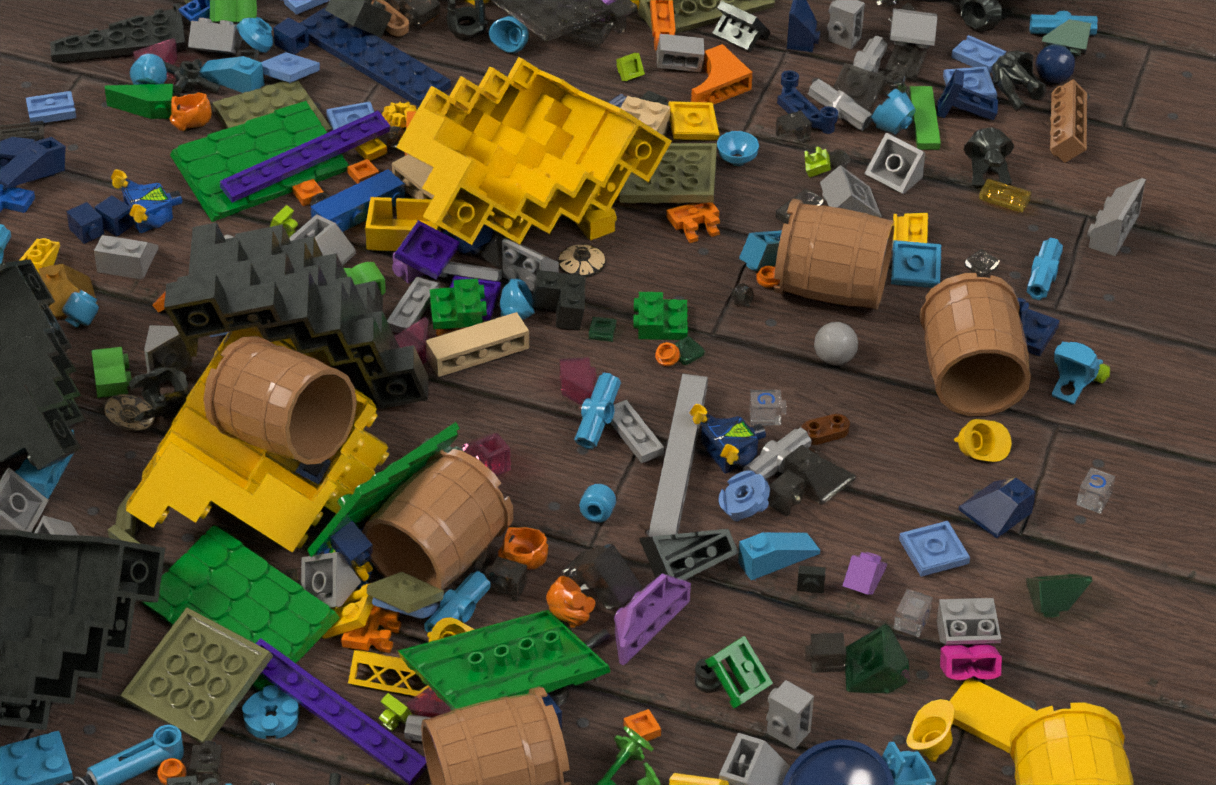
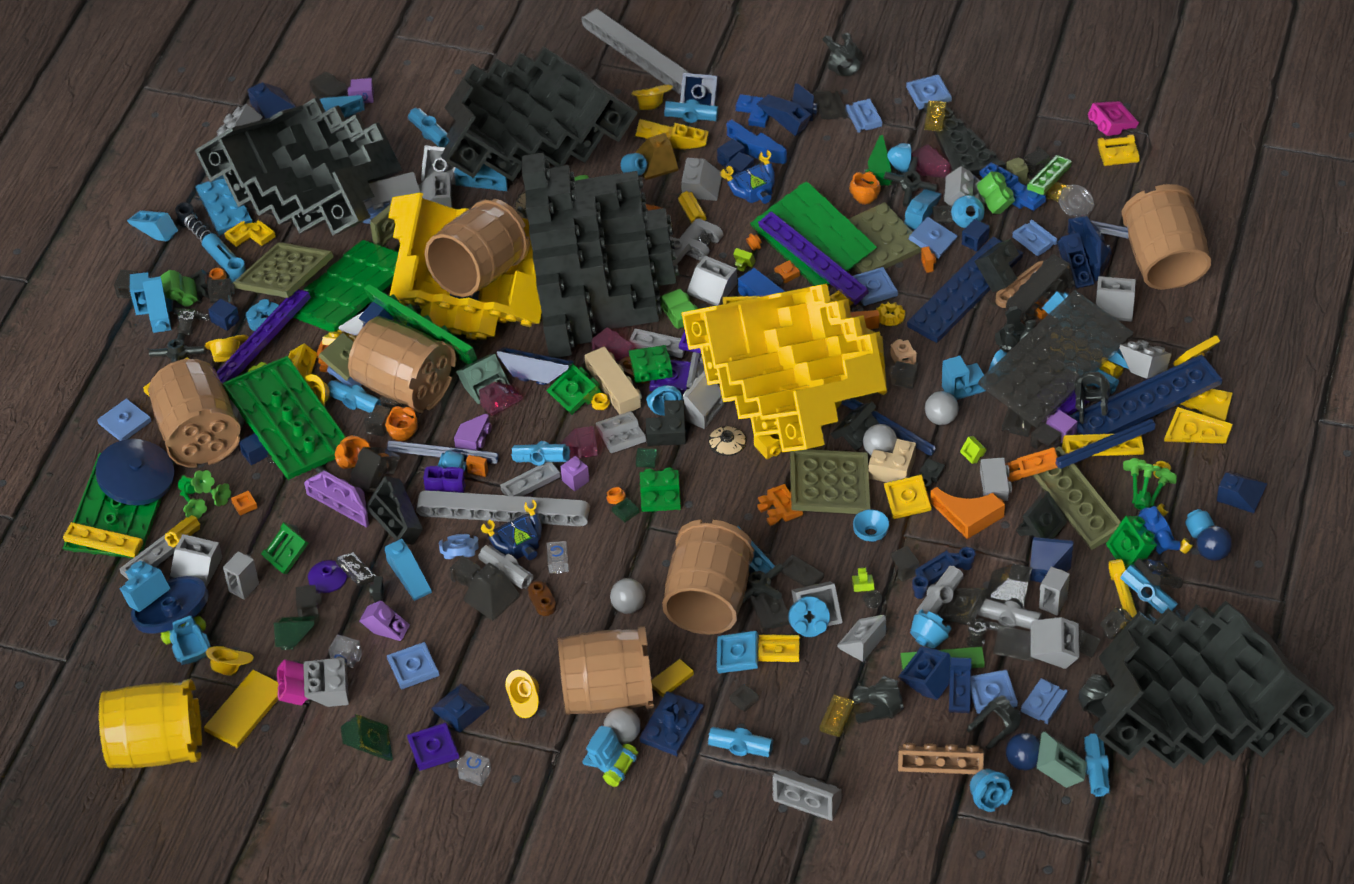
camera: 90 degrees right, 5 degrees up
(27, 53) = (928, 89): none -> medium blue plate
(78, 503) = (437, 188): none -> light grey slope
(82, 731) = (257, 231): none -> yellow plate
(84, 42) = (935, 115): none -> clear yellow plate
(85, 189) = (756, 144): none -> blue slope
(170, 264) = (691, 206): none -> yellow axle
(253, 213) = (754, 242): none -> orange plate
(261, 757) = (224, 314): none -> dark blue brick
(322, 75) = (928, 259): none -> orange plate
(336, 748) = (224, 348): none -> yellow piece
(445, 405) = (533, 366): none -> wedge
(483, 382) = (574, 389): none -> green plate
(504, 363) = (600, 401): none -> yellow plate
(529, 49) = (961, 379): none -> dark azure brick
(548, 482) = (473, 433): none -> medium lavender slope
(555, 345) = (620, 432): none -> light grey slope
(568, 519) = (436, 451): none -> axle
(572, 73) = (941, 408): none -> light grey piece
(603, 475) = (477, 465): none -> orange plate
(633, 384) = (574, 473): none -> medium lavender brick
(633, 505) = (444, 480): none -> dark purple brick
(773, 603) = (355, 569): none -> clear smoke plate
(775, 640) = (327, 576): none -> dark purple dish
(826, 57) = (1010, 584): none -> clear smoke slope
(875, 199) = (801, 608): none -> dark azure plate
(951, 118) = (927, 672): none -> dark blue slope
(1041, 353) = (624, 723): none -> light grey piece
(1061, 530) = (432, 746): none -> dark purple plate
(1105, 89) = (990, 789): none -> dark azure cone

